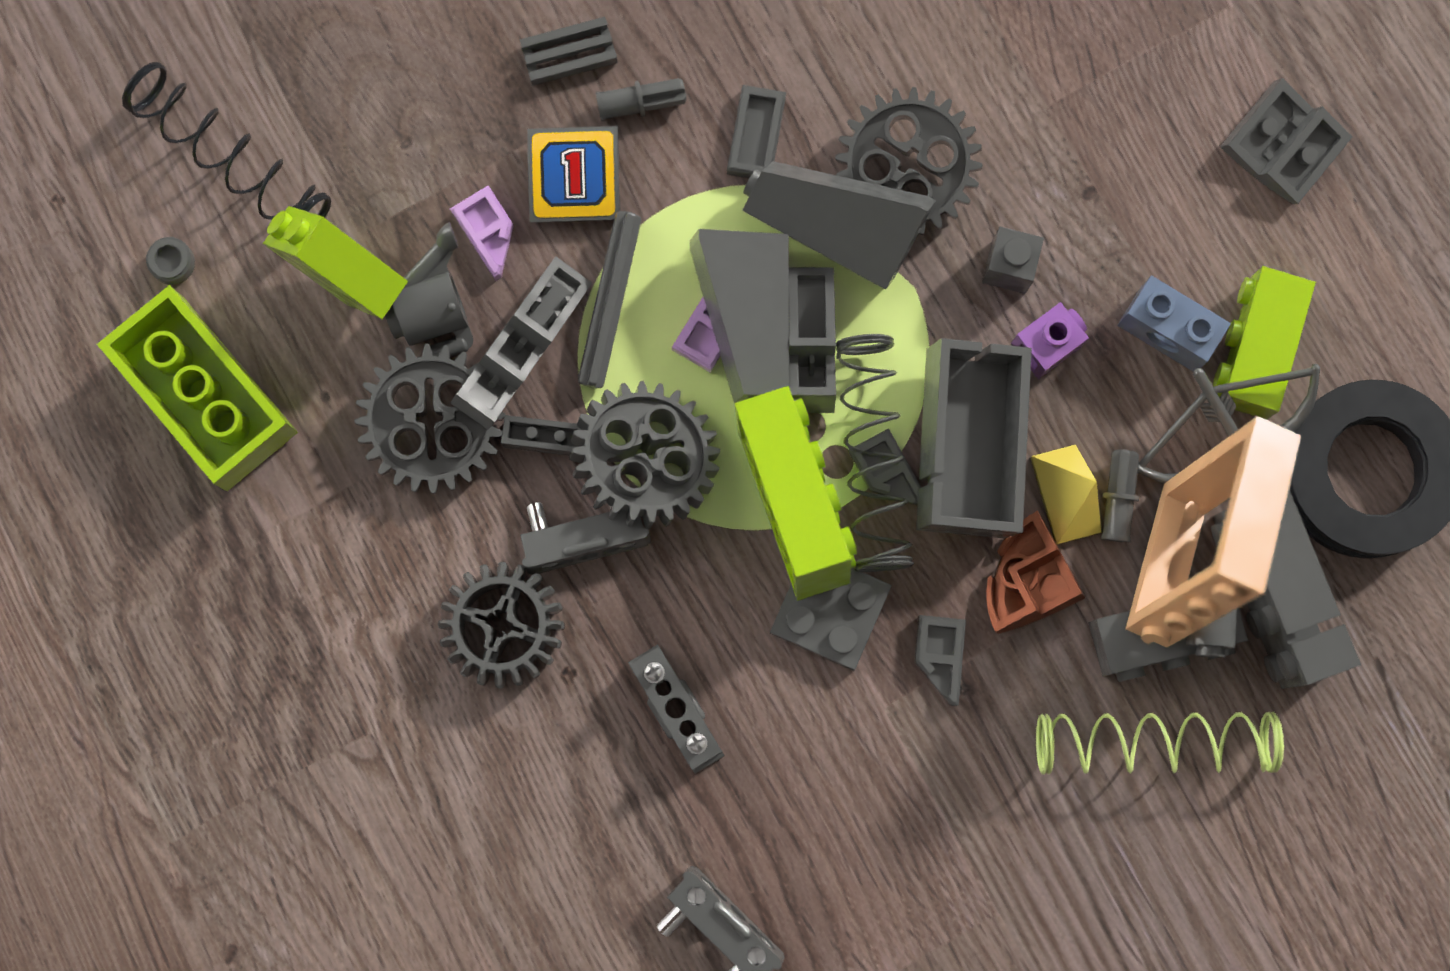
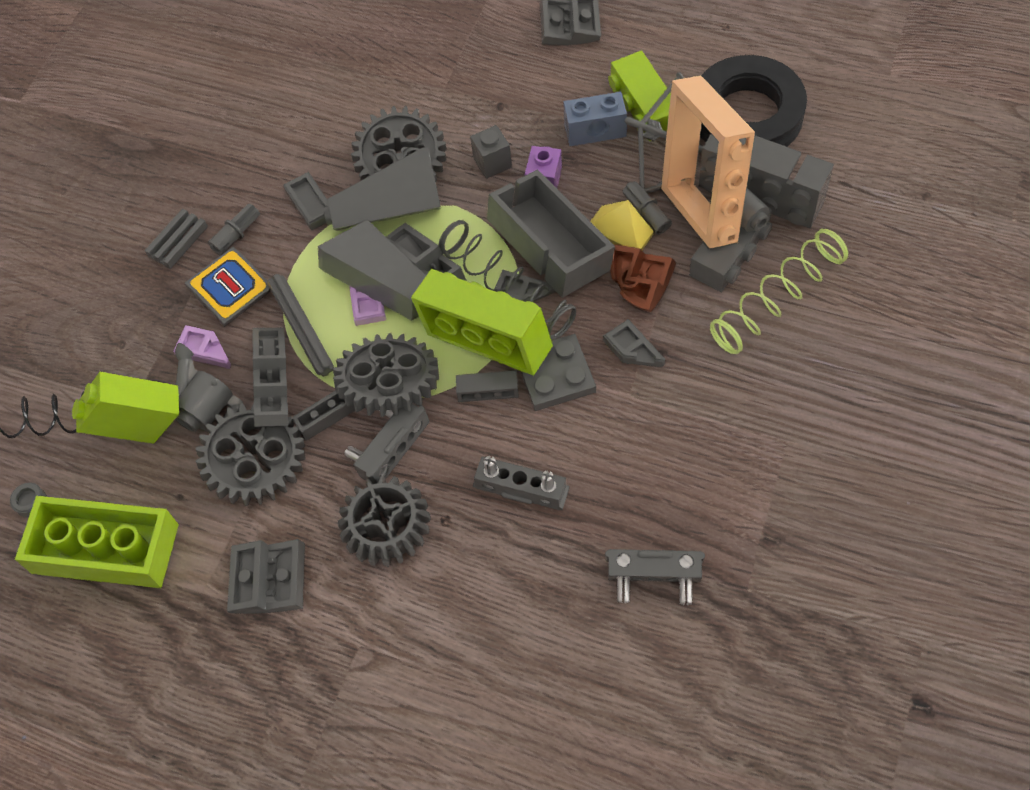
camera: 35 degrees left, 20 degrees down
(338, 576) = (266, 577): none -> dark grey slope
(742, 561) = (487, 386): none -> dark grey piece

